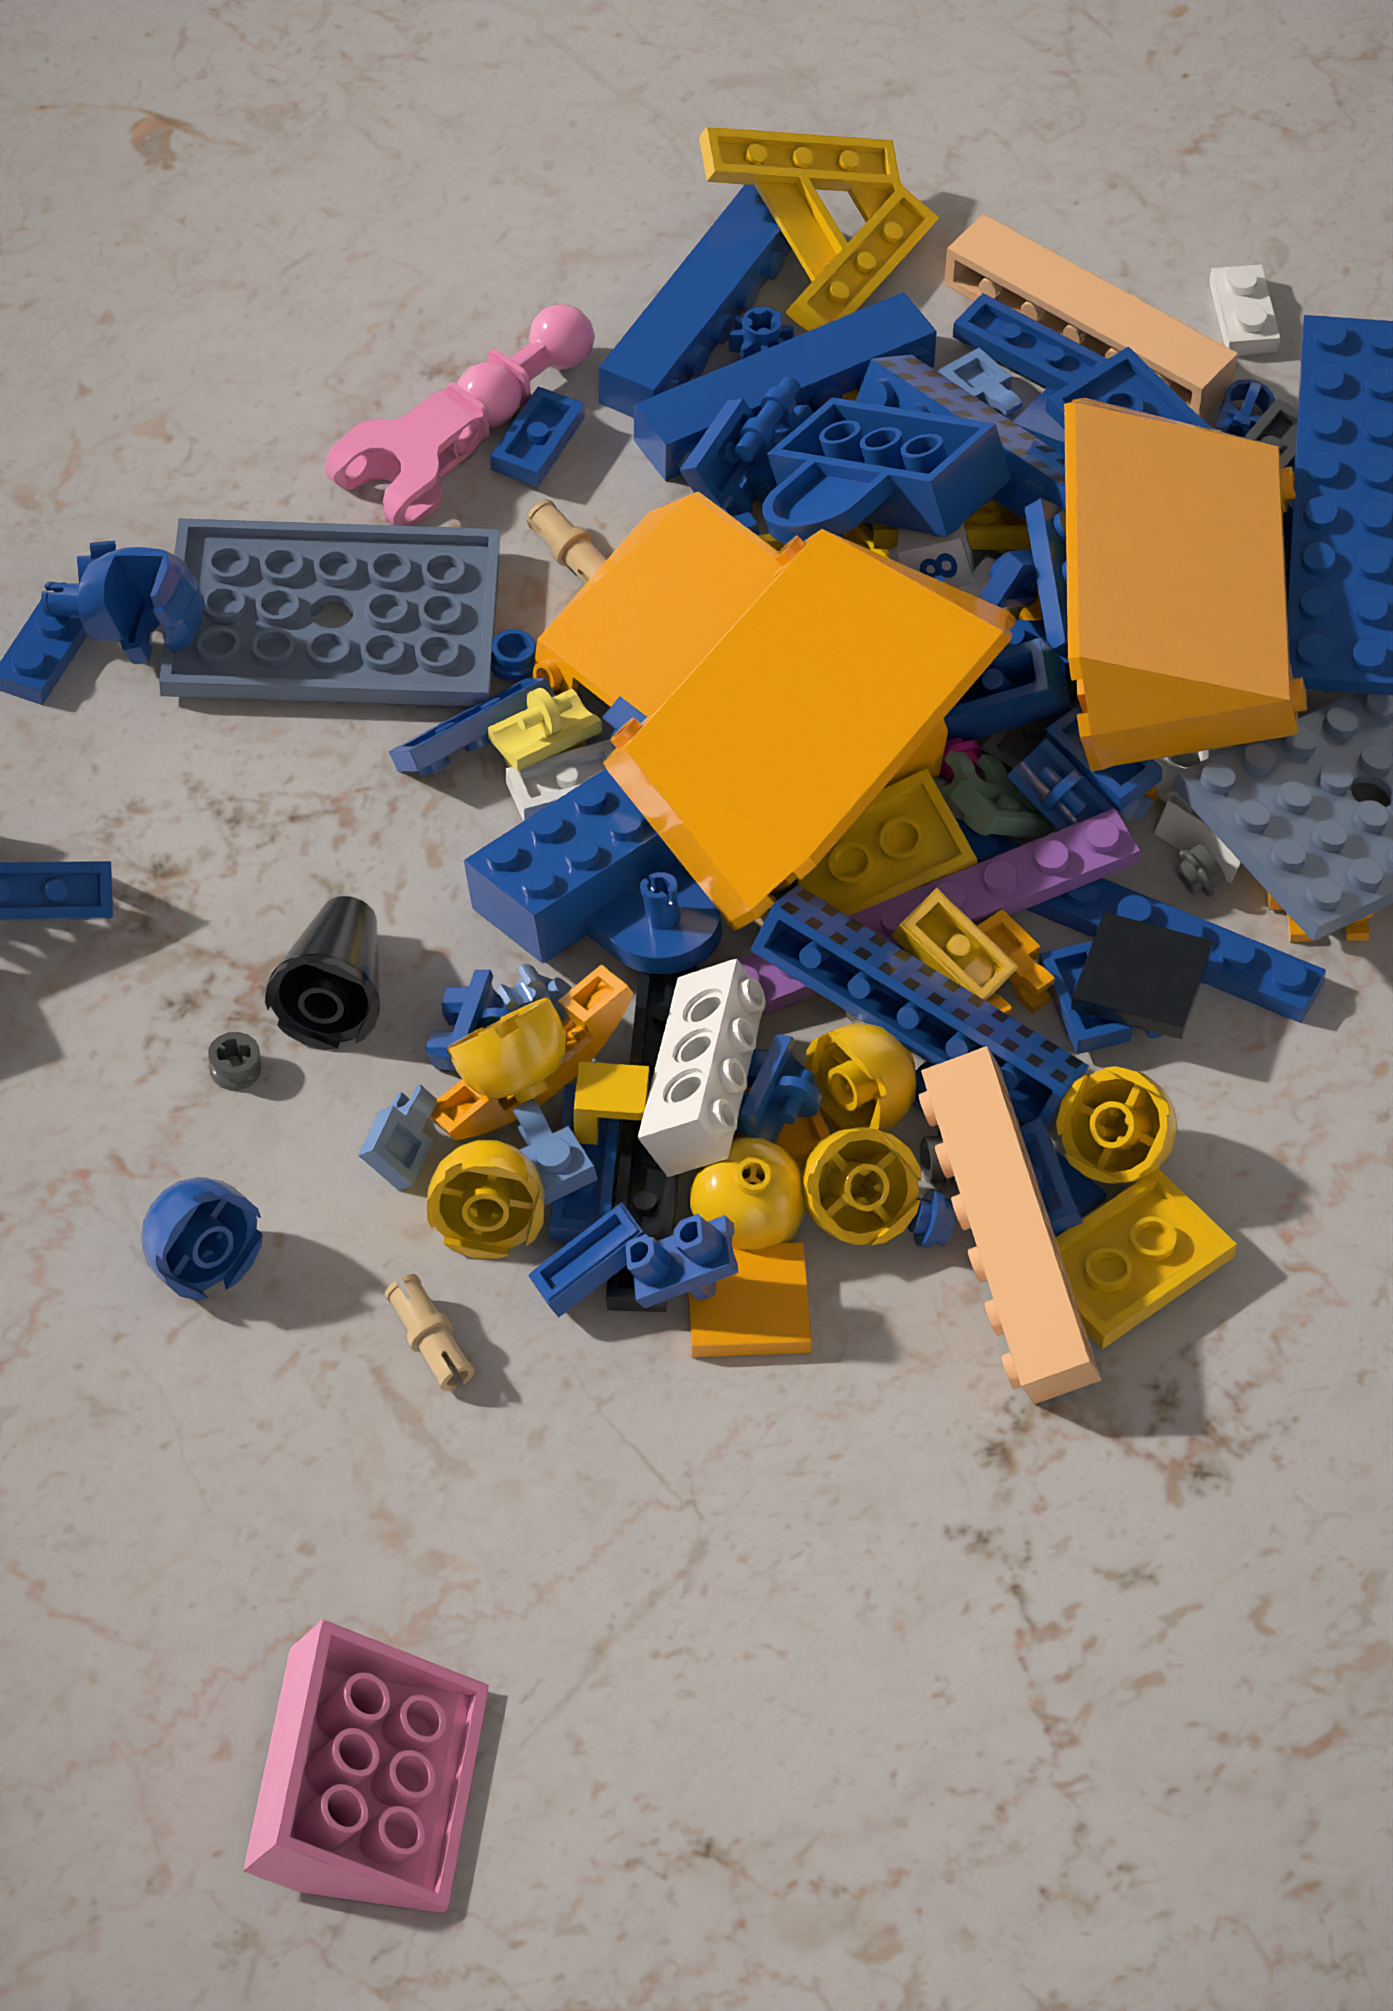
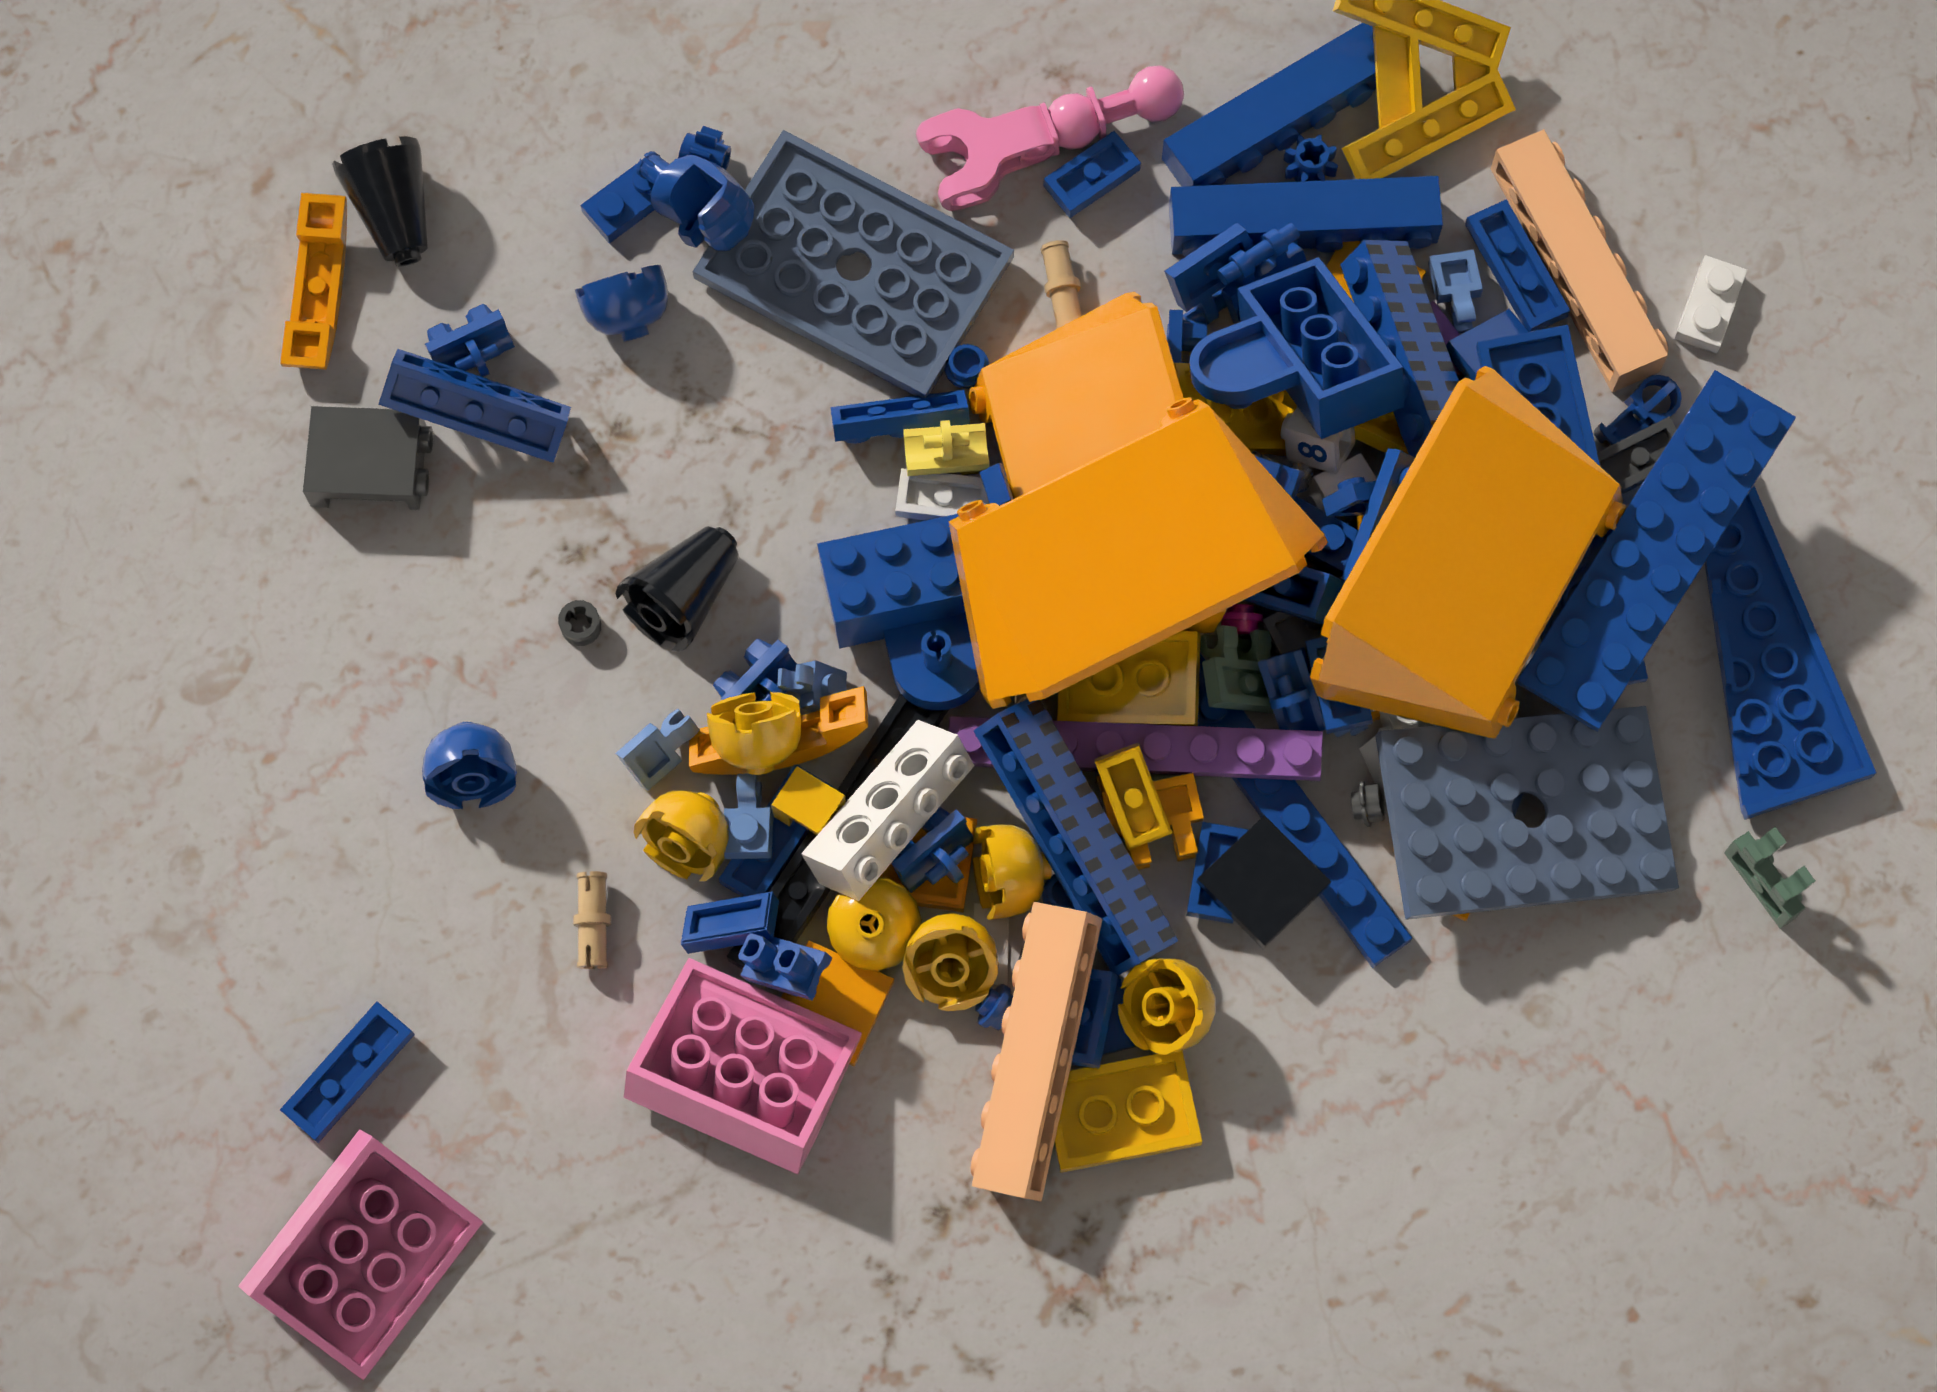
camera: 30 degrees right, 20 degrees up
(102, 734) = (625, 302): none -> blue cylinder
(238, 1603) = (347, 1072): none -> blue plate
(691, 1394) = (741, 1065): none -> bright pink slope

